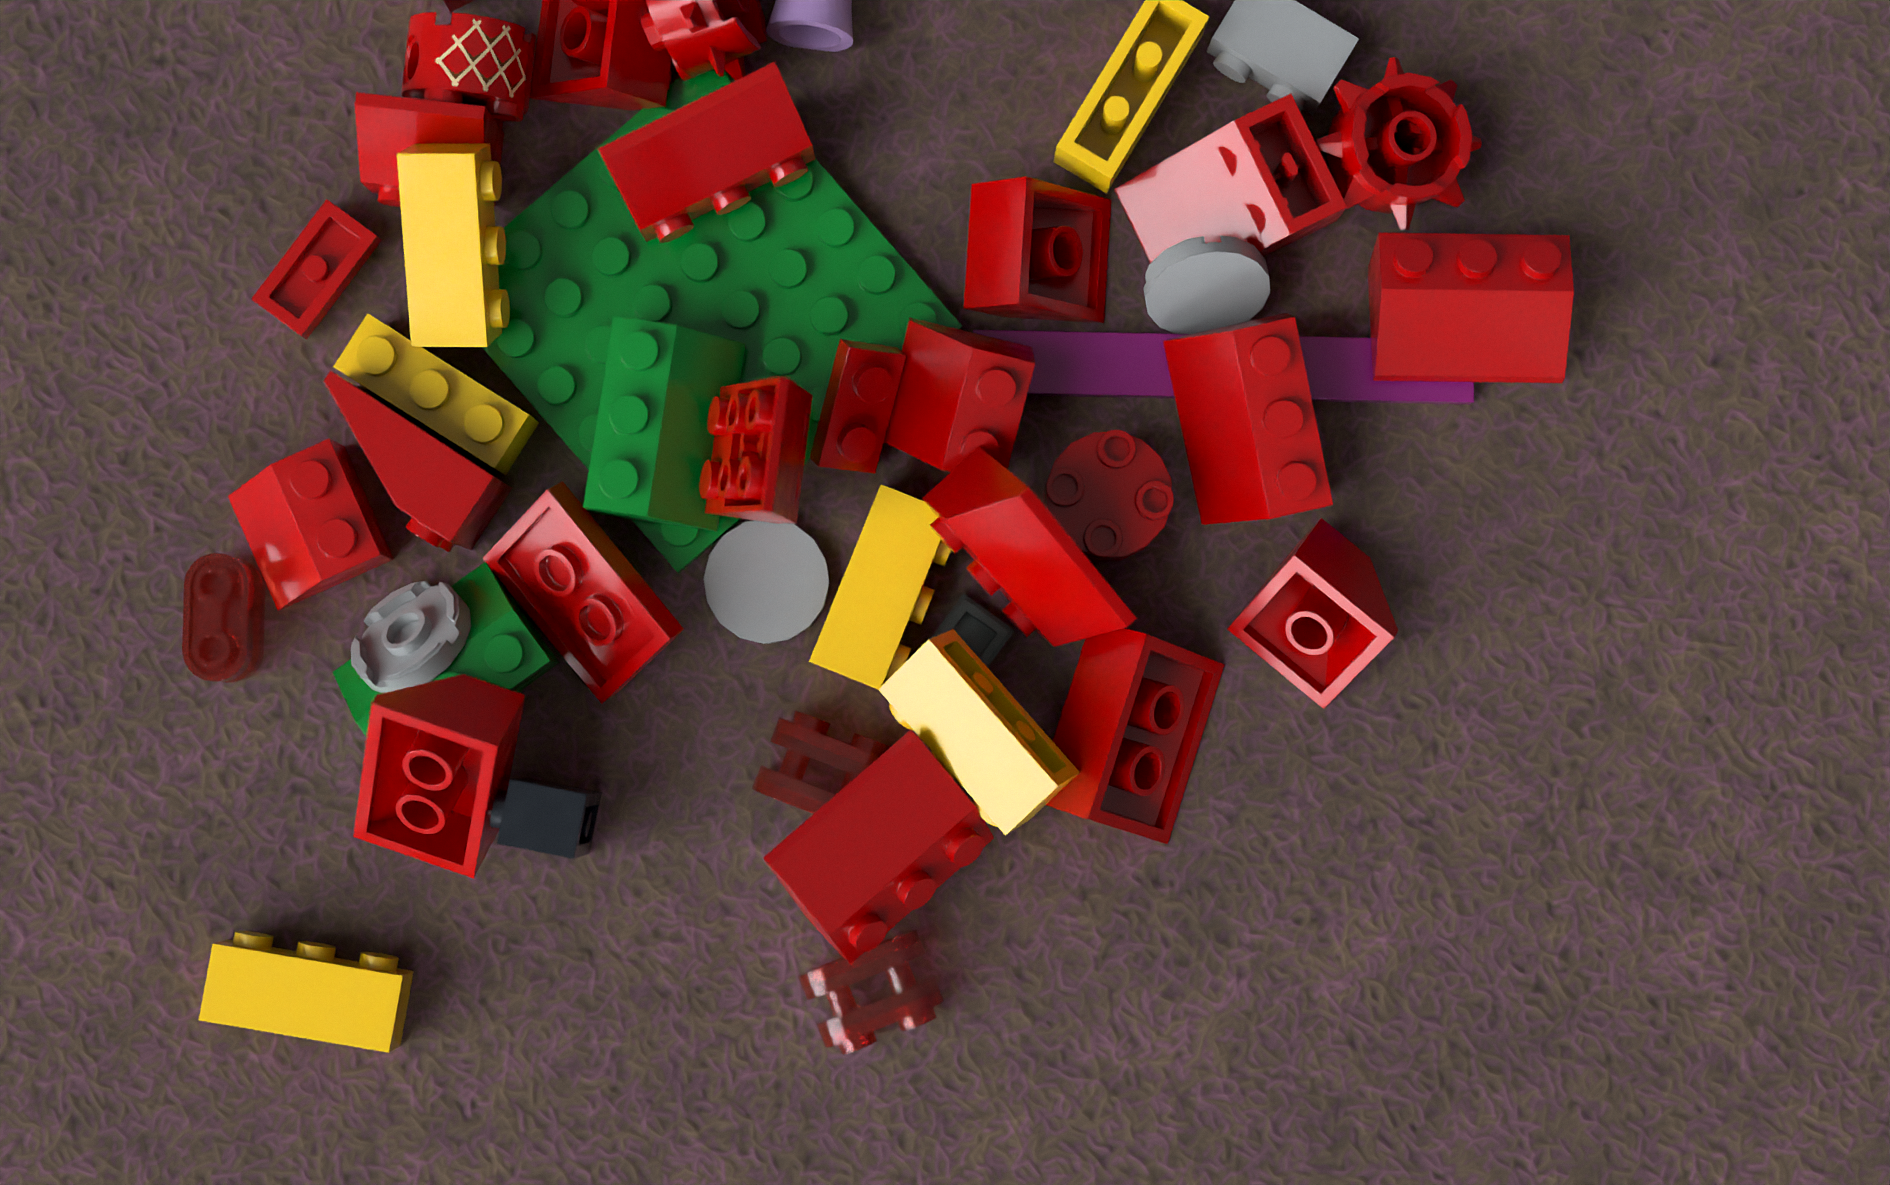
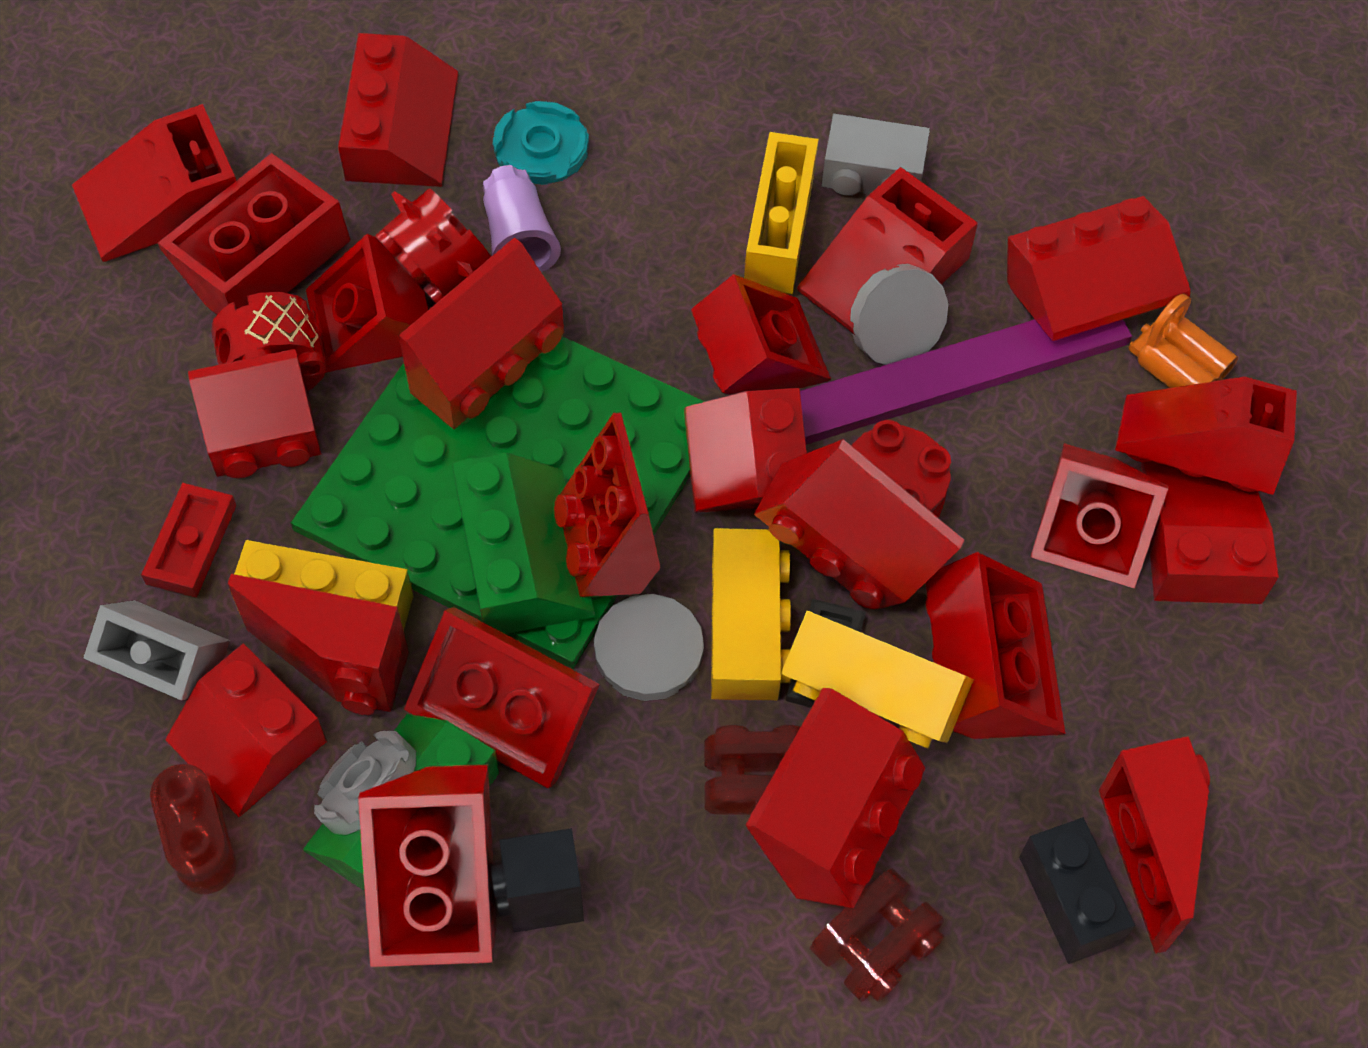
camera: 20 degrees left, 25 degrees down
(240, 401) = (153, 647): none -> light grey brick
(452, 244) = (301, 459): yellow brick -> none
(857, 406) = (670, 483): red plate -> none
(1089, 1024) = (1076, 890): none -> black brick
(1203, 999) = (1158, 820): none -> red slope
(1248, 421) = (976, 392): red slope -> none
(1394, 113) = (993, 181): red brick -> none
(1440, 674) = (1210, 541): none -> red slope
(1491, 567) = (1214, 429): none -> red slope
(1519, 447) = (1179, 350): none -> orange piece

